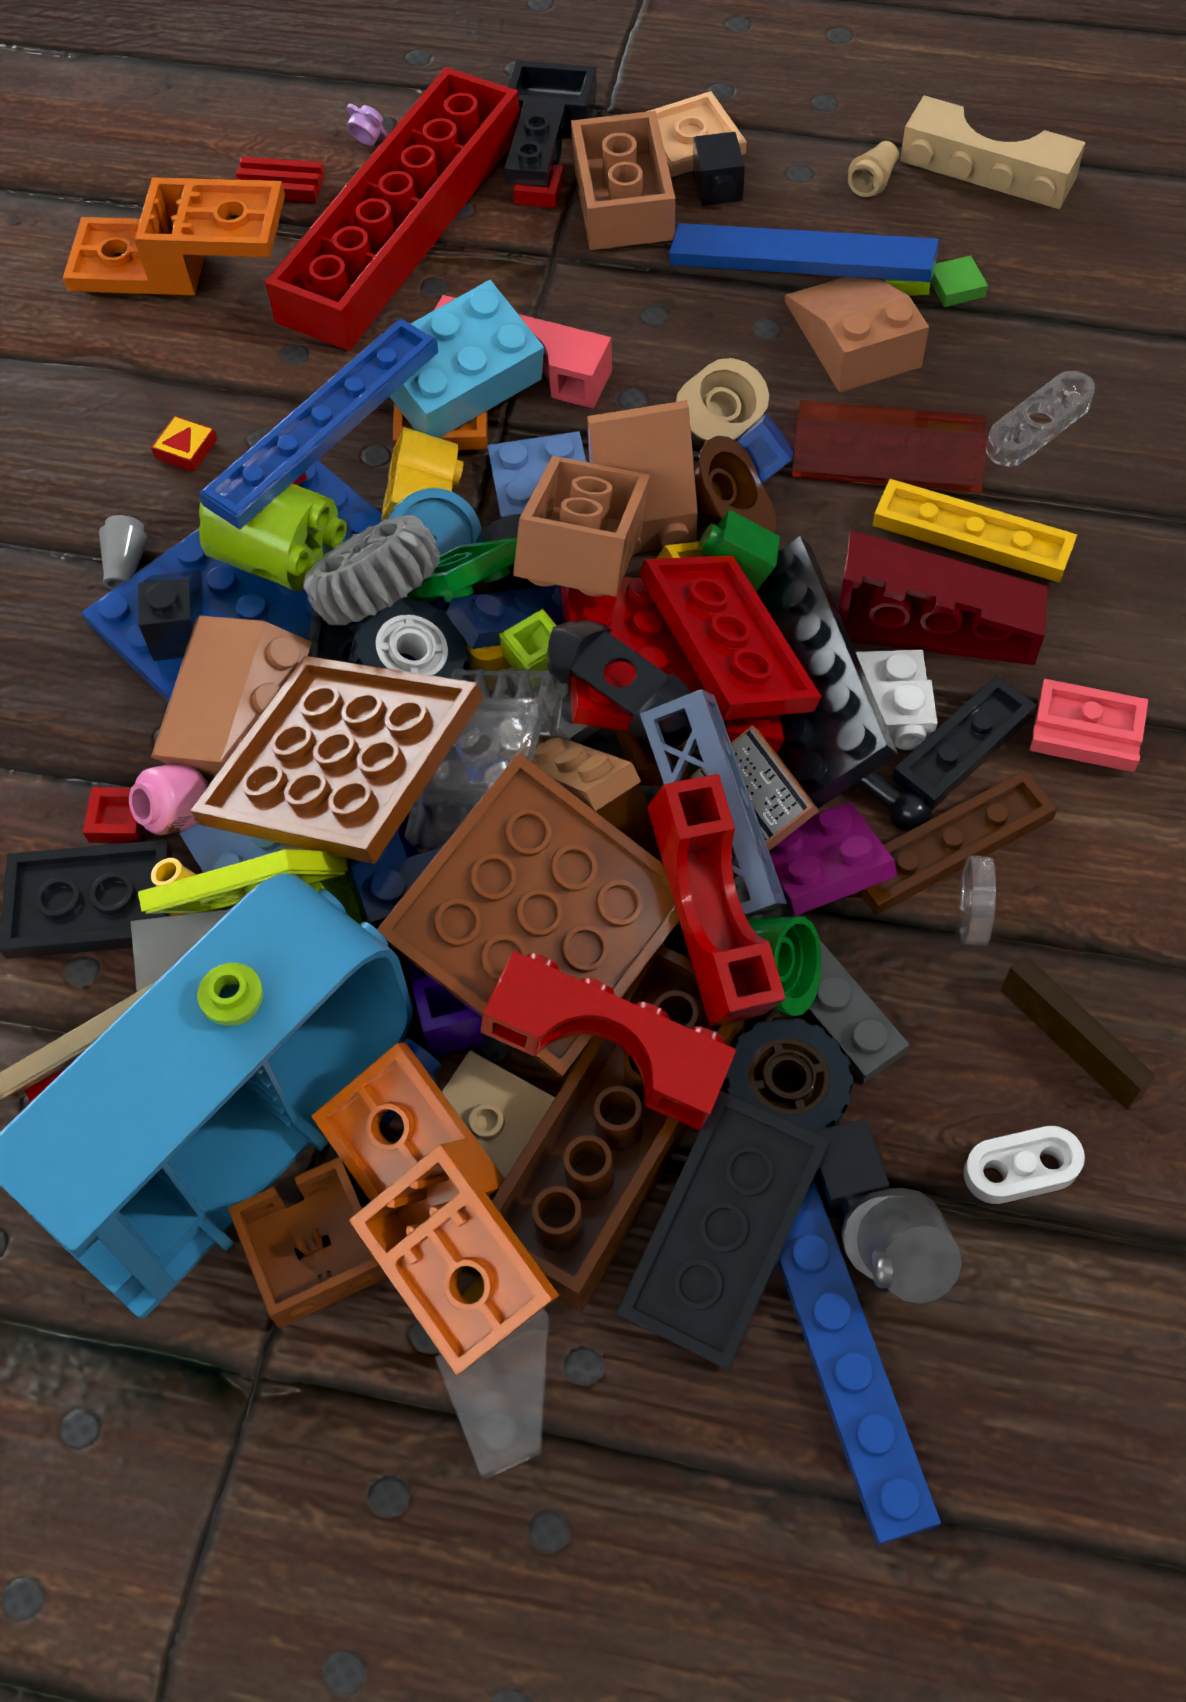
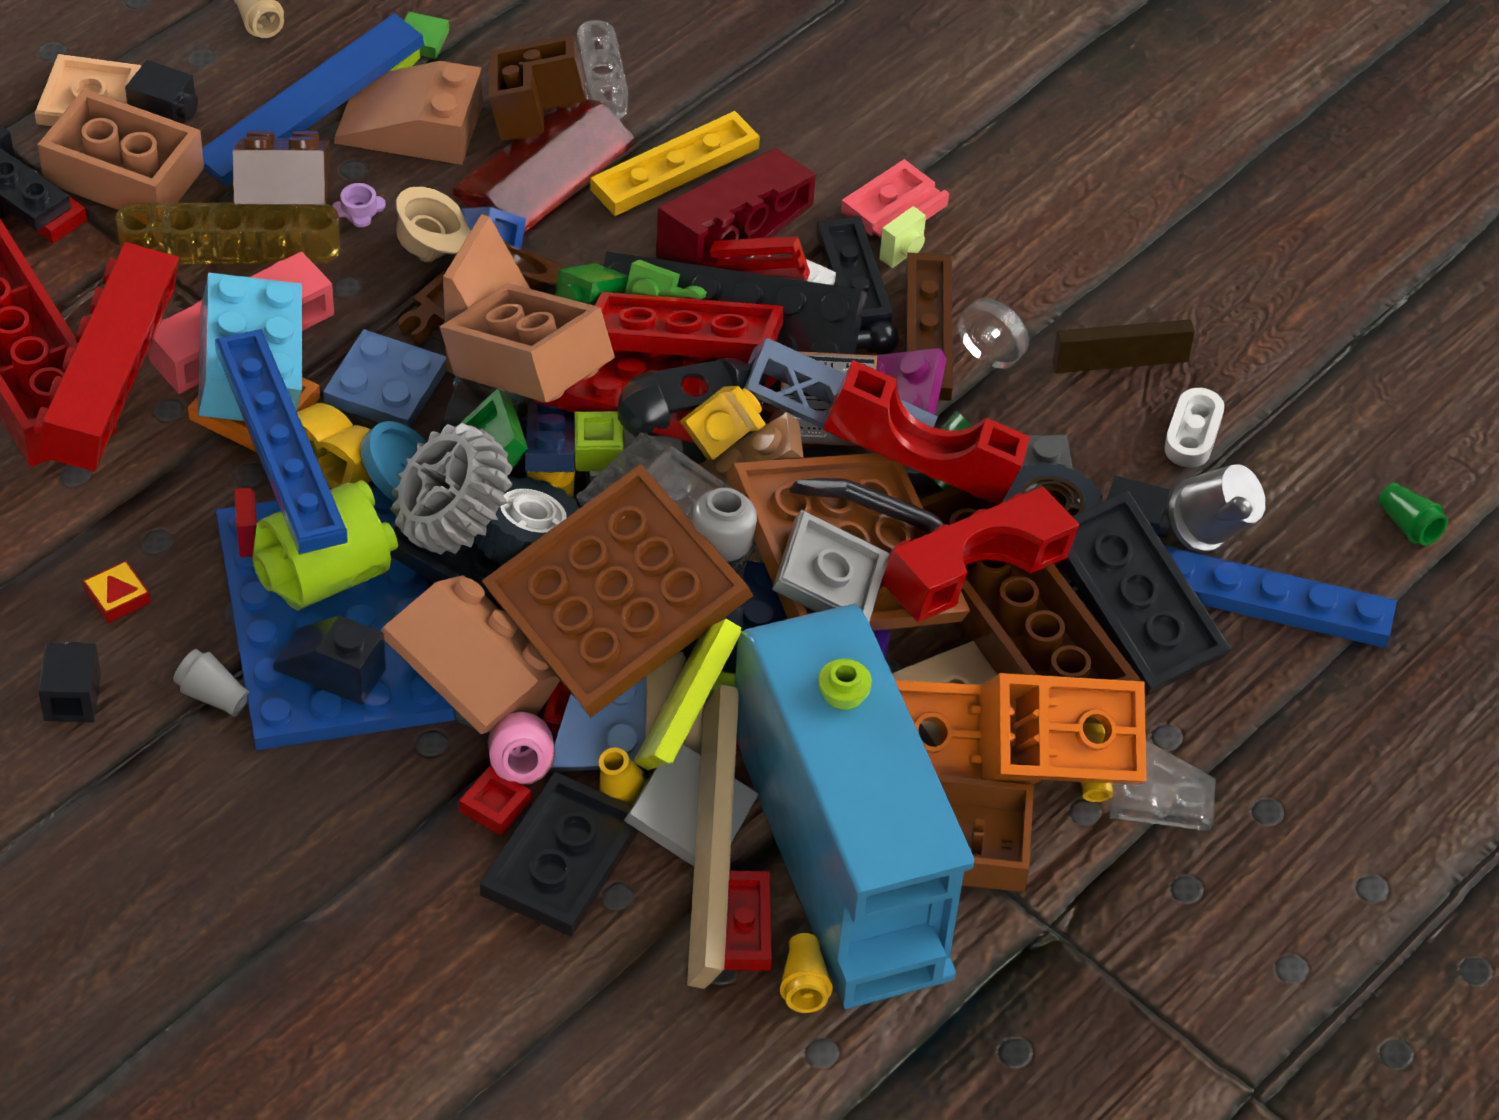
camera: 65 degrees left, 10 degrees down
(63, 464) = (69, 682): none -> black brick
(362, 279) = (107, 357): none -> red brick
(446, 788) = (726, 521): none -> light grey head
(463, 914) = (829, 567): none -> light grey tile
(597, 720) = (723, 420): none -> yellow bracket
(600, 908) = (868, 498): none -> black piece
(609, 291) = (232, 231): none -> clear yellow beam
(687, 273) = (281, 169): none -> brick
(718, 344) = (359, 204): none -> lavender plate
(780, 593) = (657, 281): none -> bright green plate
(879, 652) = (762, 263): none -> red tile
(949, 368) = (533, 79): none -> reddish brown brick
(1046, 755) = (902, 236): none -> yellowish green plate
(1087, 1476) = (1415, 515): none -> green cone

